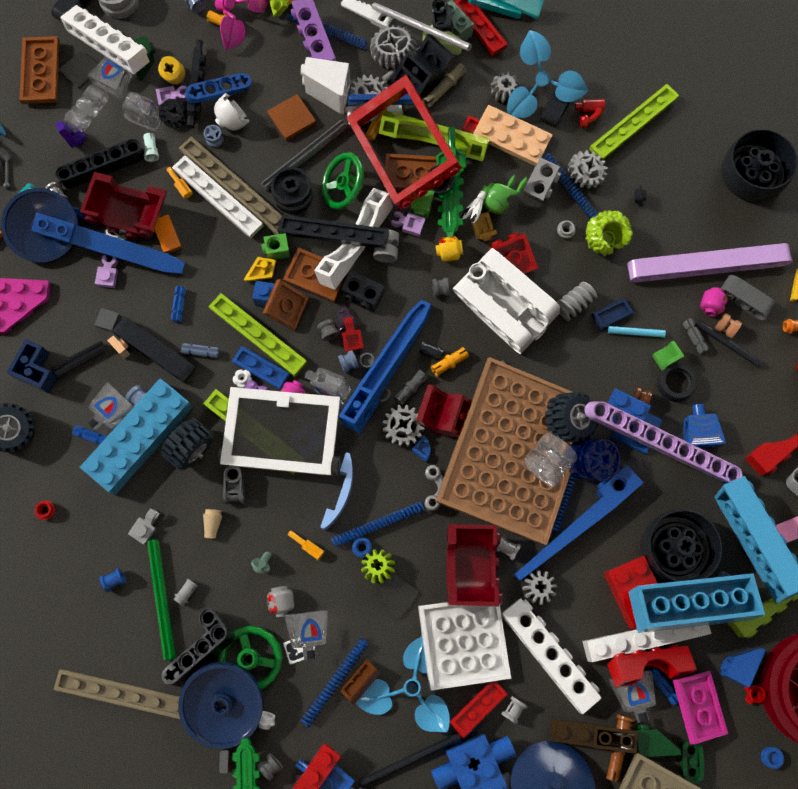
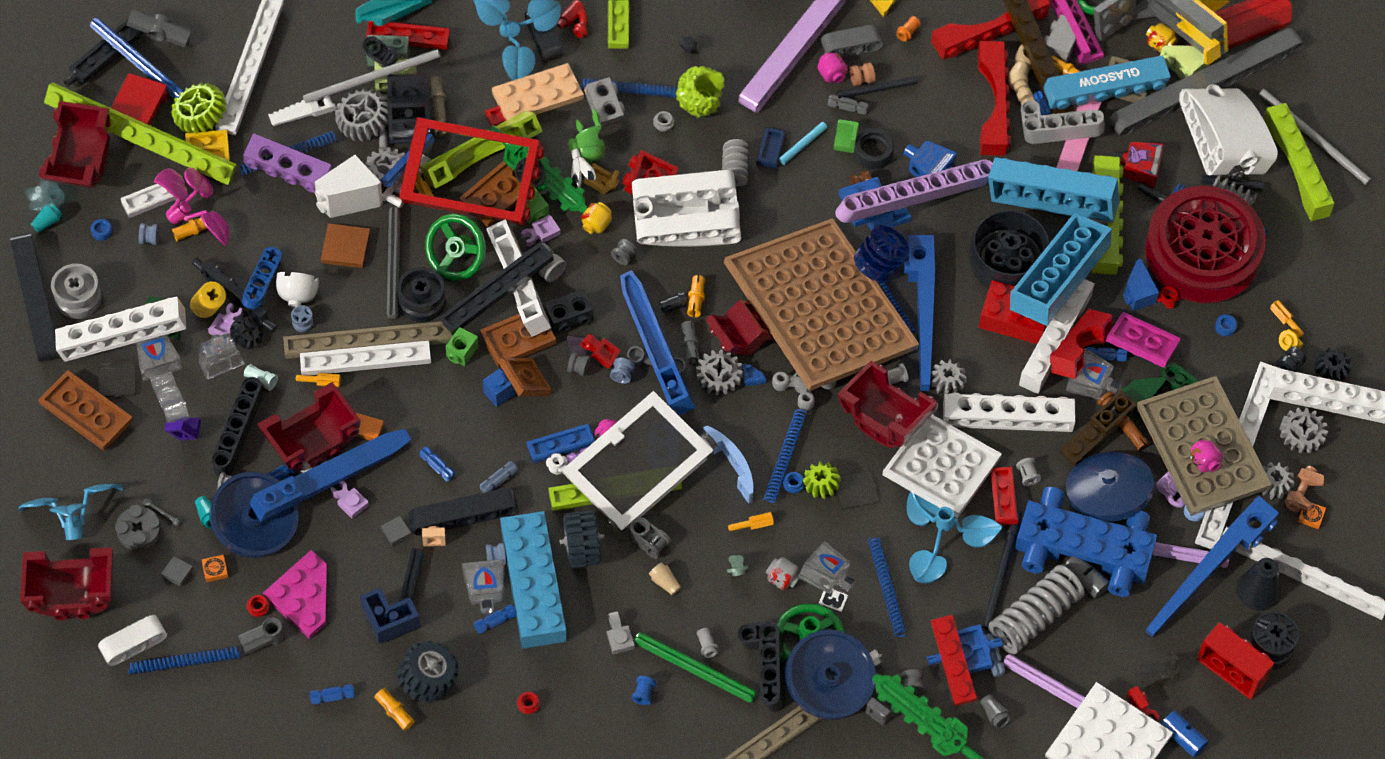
camera: 50 degrees left, 15 degrees down
(258, 334) = (528, 421): lime plate -> none
(261, 269) = (470, 375): yellow piece -> none
(328, 383) = (627, 395): clear torso -> none
(360, 681) = (904, 565): reddish brown plate -> none
(504, 86) = (488, 63): light grey gear -> none
(550, 459) = (854, 279): clear wheel -> none
(568, 419) = (833, 239): black wheel -> none
(587, 169) = (627, 62): light grey gear -> none

